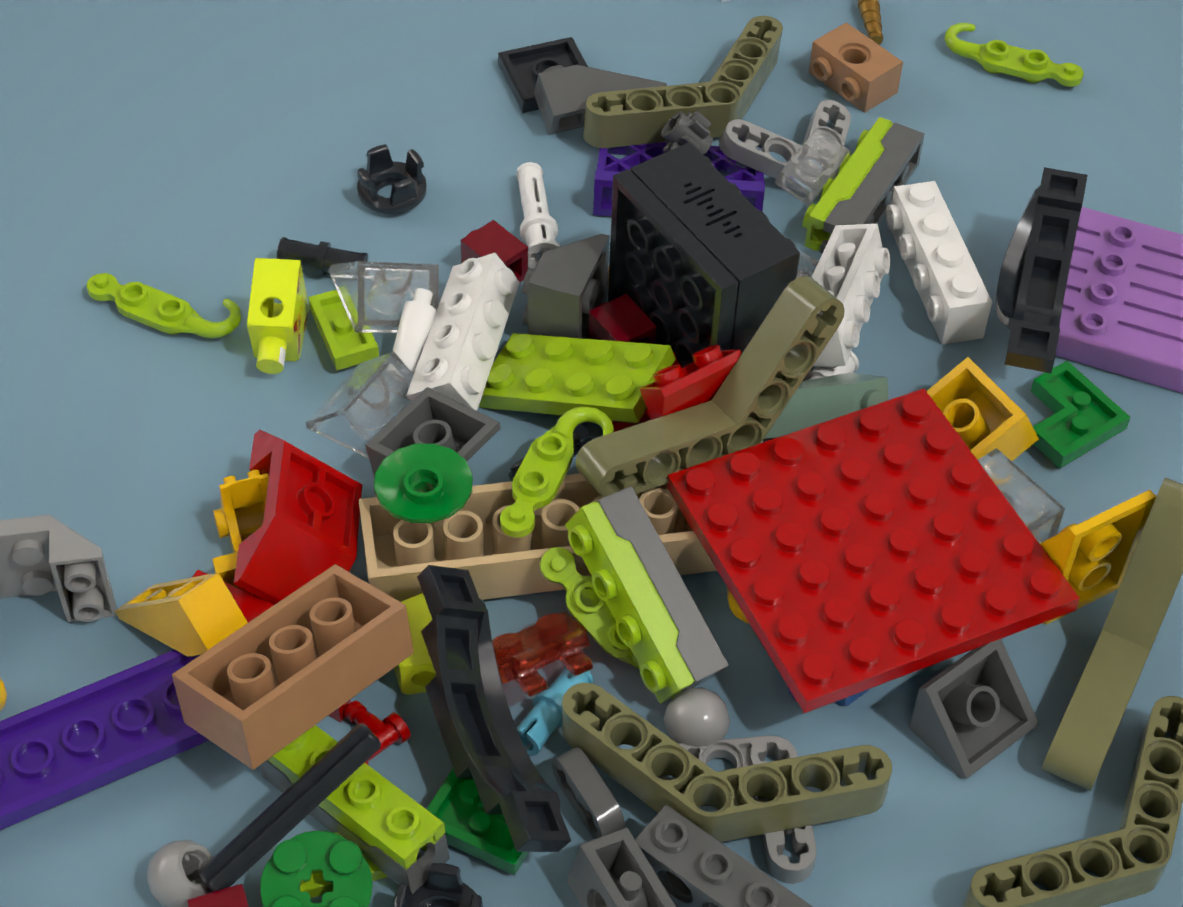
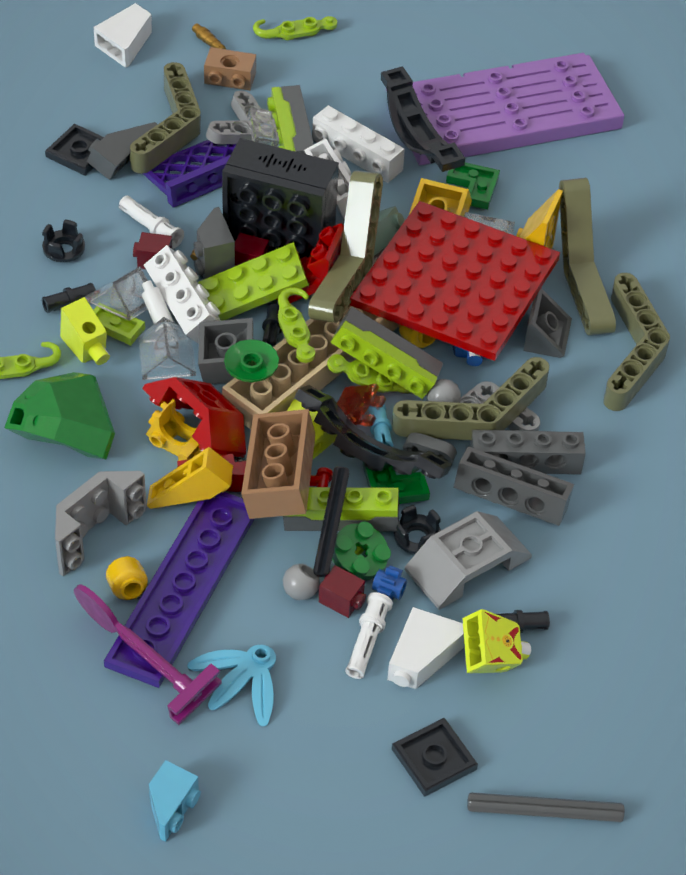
camera: 40 degrees left, 0 degrees up
(131, 410) = (65, 413): none -> green brick
(687, 128) = (192, 143): dark grey gear -> none

